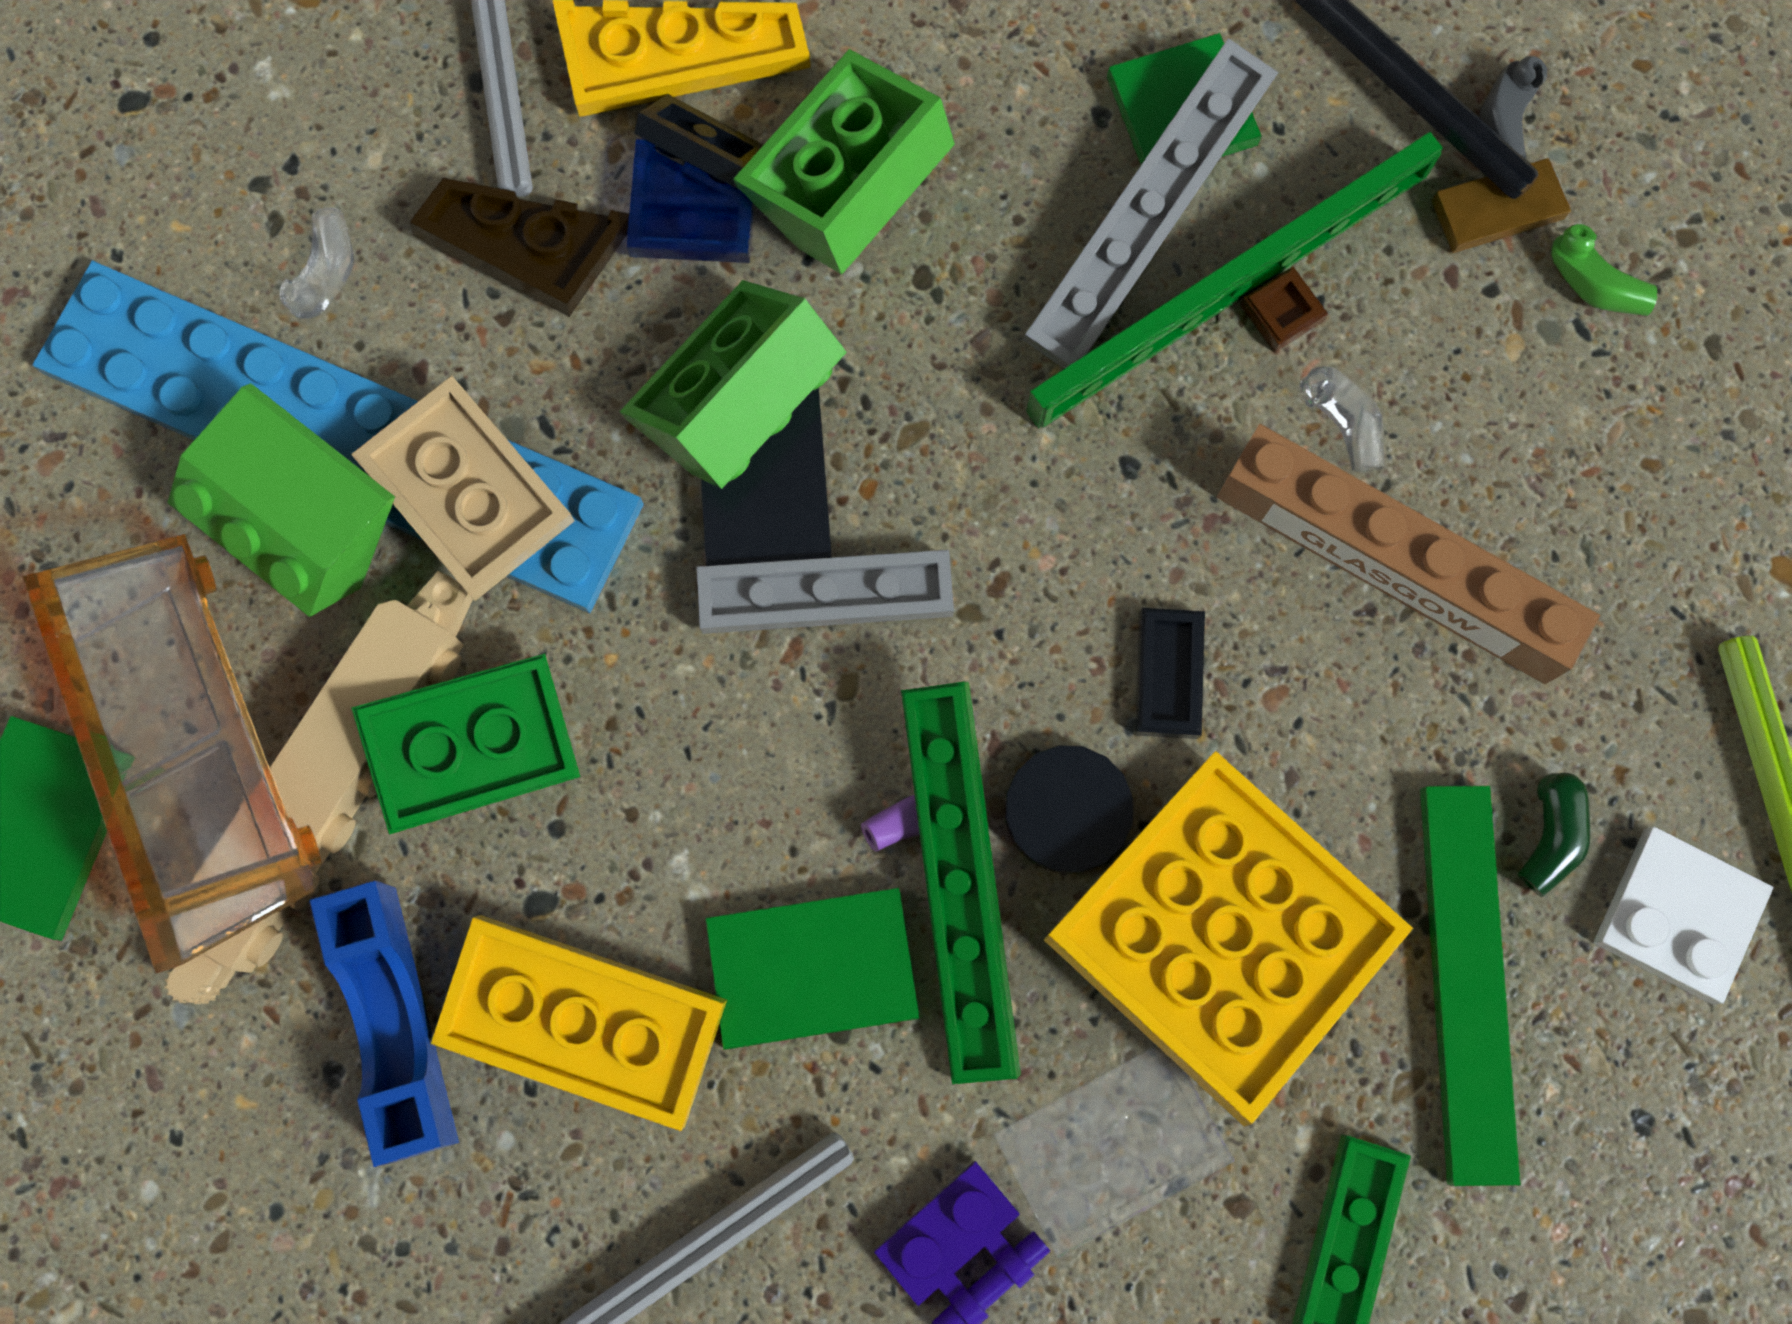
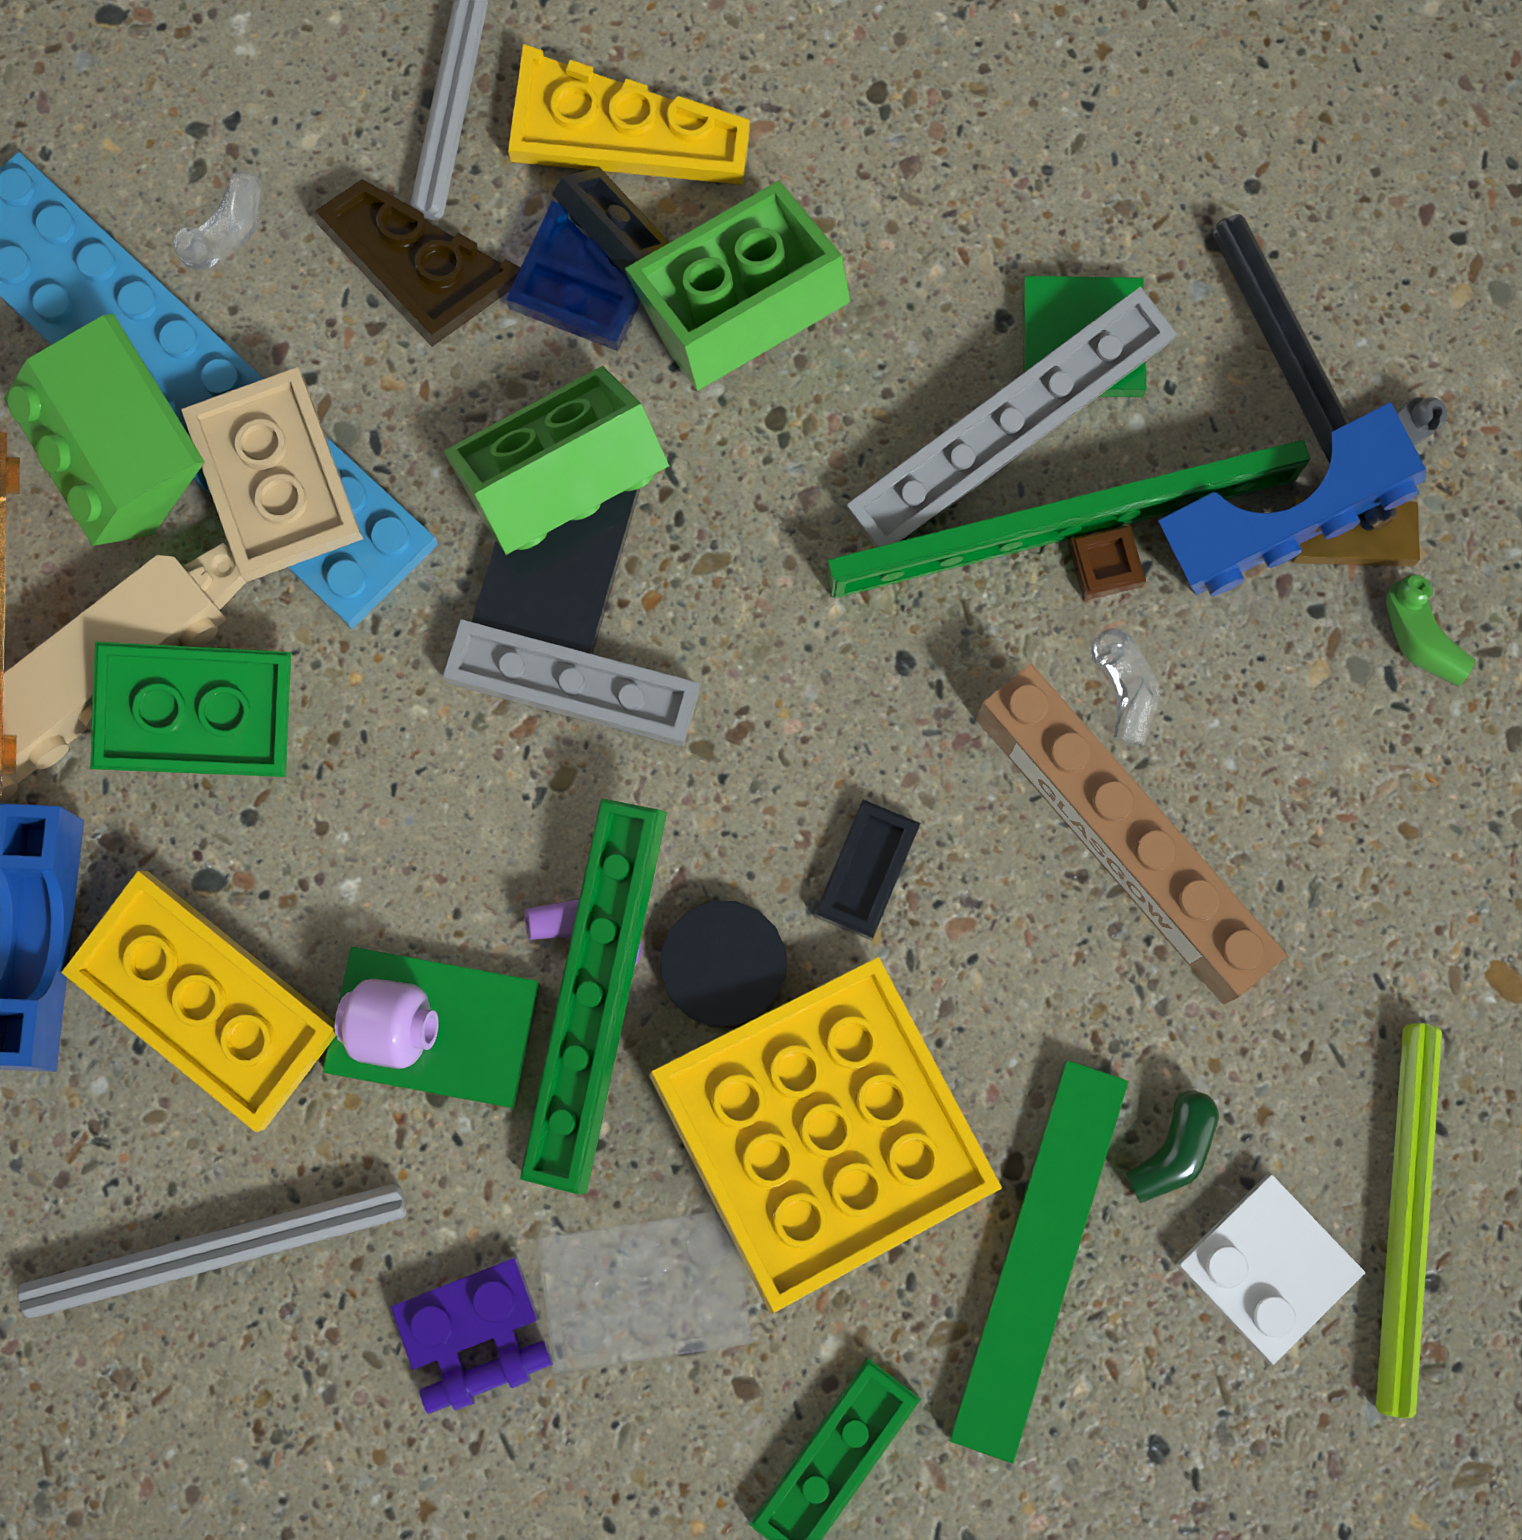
camera: 20 degrees right, 0 degrees up
(772, 979) = (386, 1023): none -> lavender head
(1501, 134) = (1368, 467): none -> blue arch

